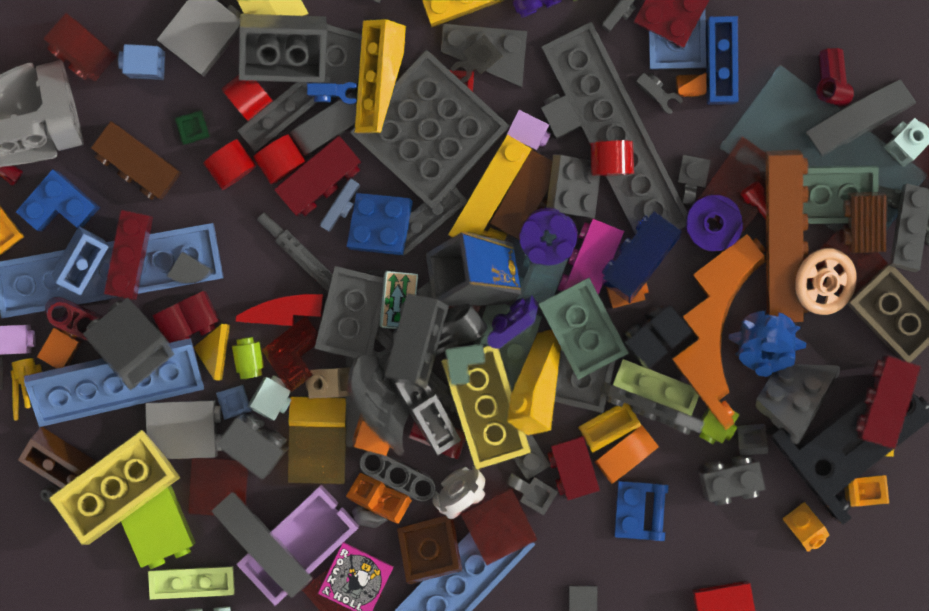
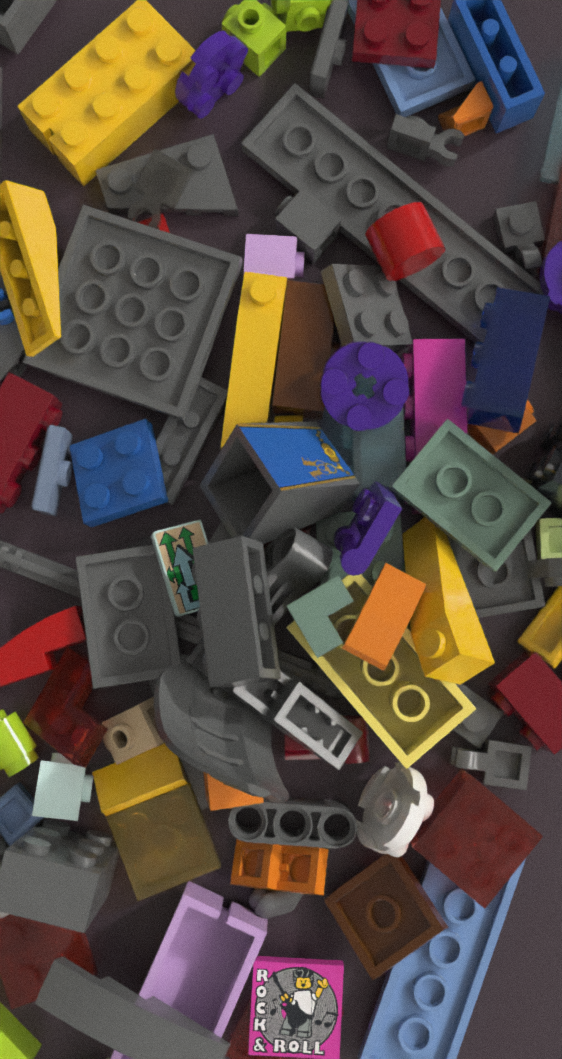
camera: 20 degrees left, 5 degrees down
(500, 378) = (384, 616): none -> orange slope

